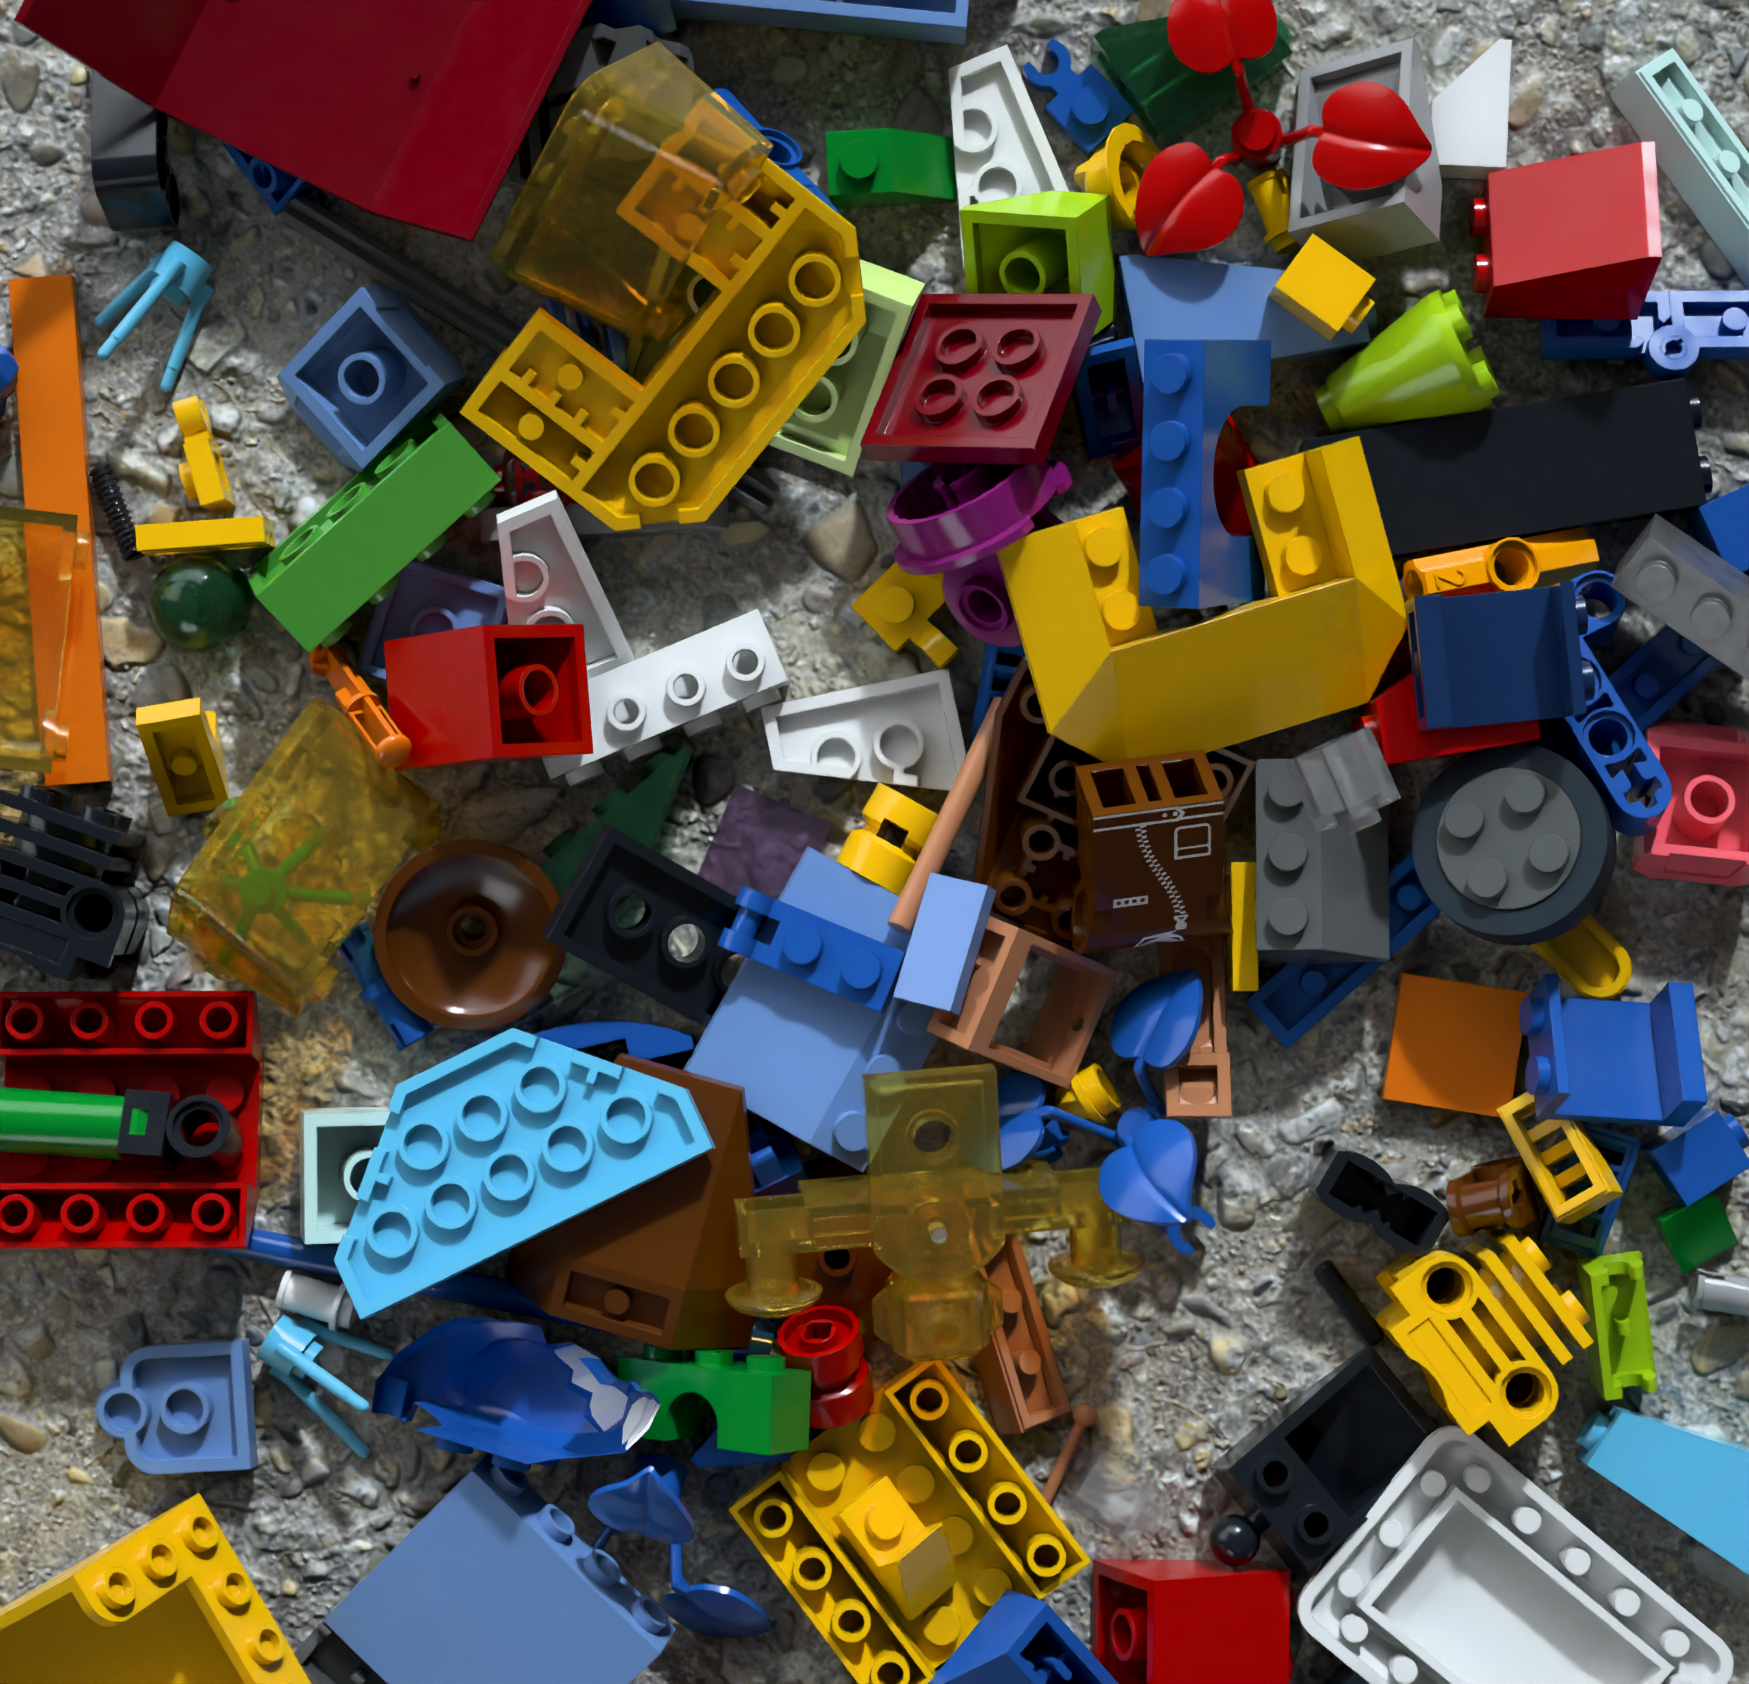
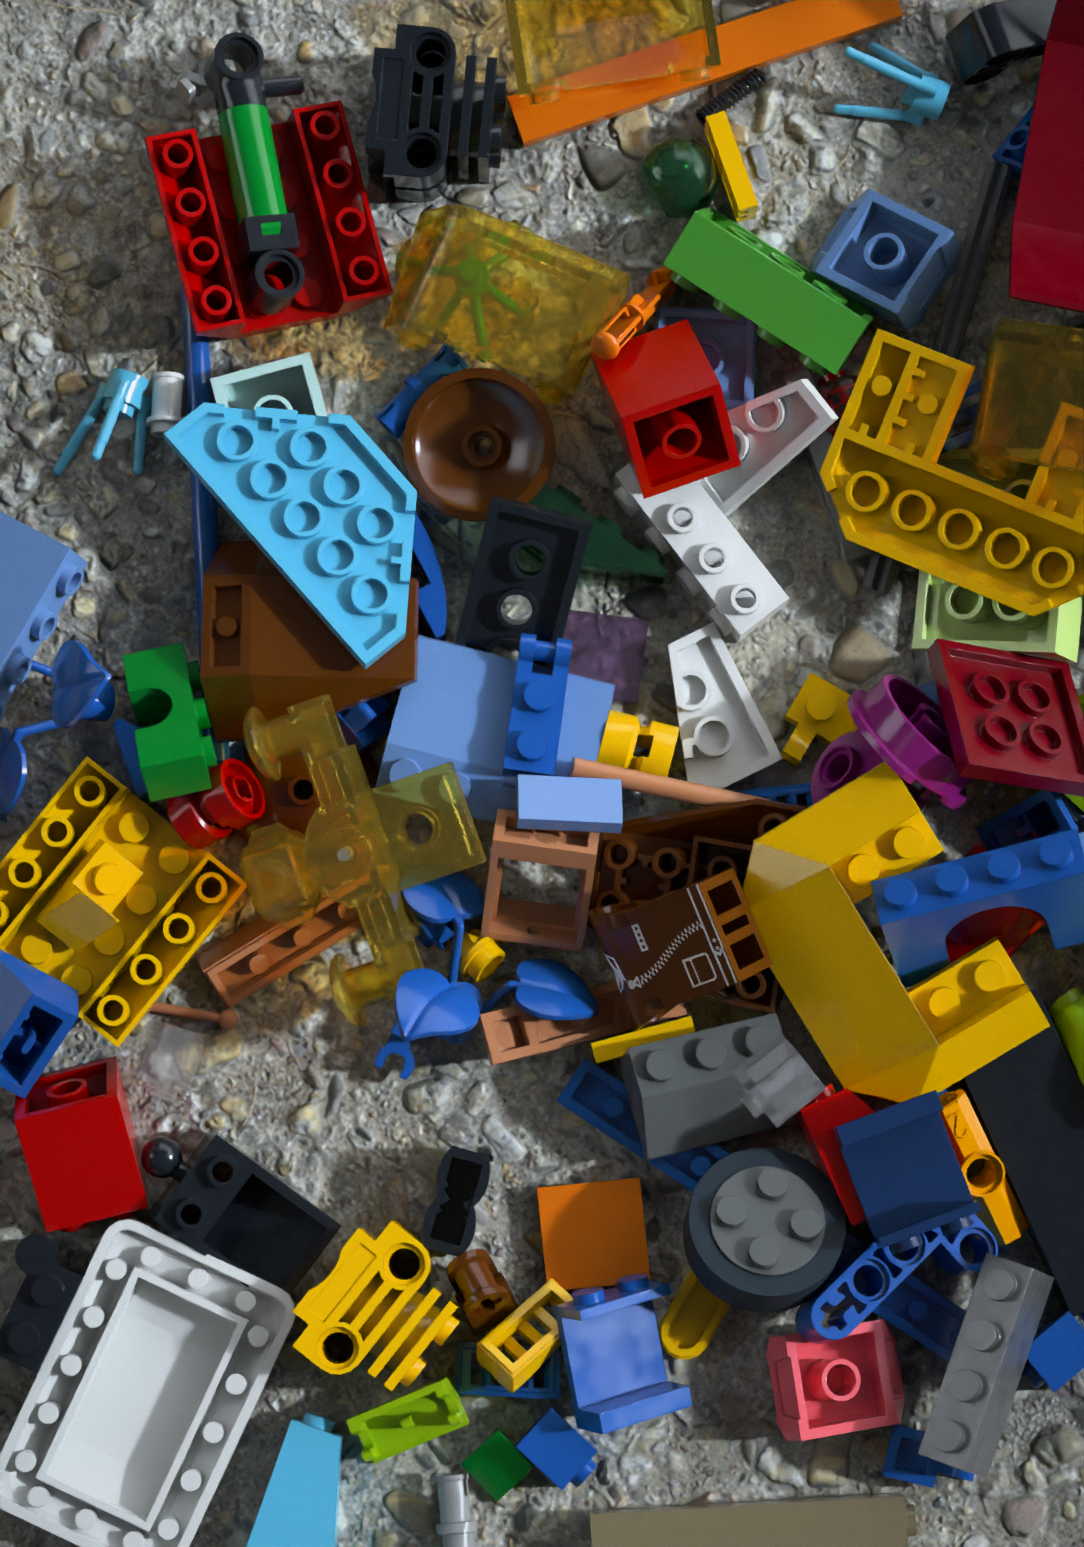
camera: 70 degrees right, 5 degrees down
(184, 755) = (559, 194): yellow slope -> none
(184, 1407) = (58, 325): medium blue plate -> none
(204, 472) = (781, 153): yellow plate -> none
(513, 1394) = (134, 567): blue animal -> none
(1348, 1303) = (369, 1203): black piece -> none

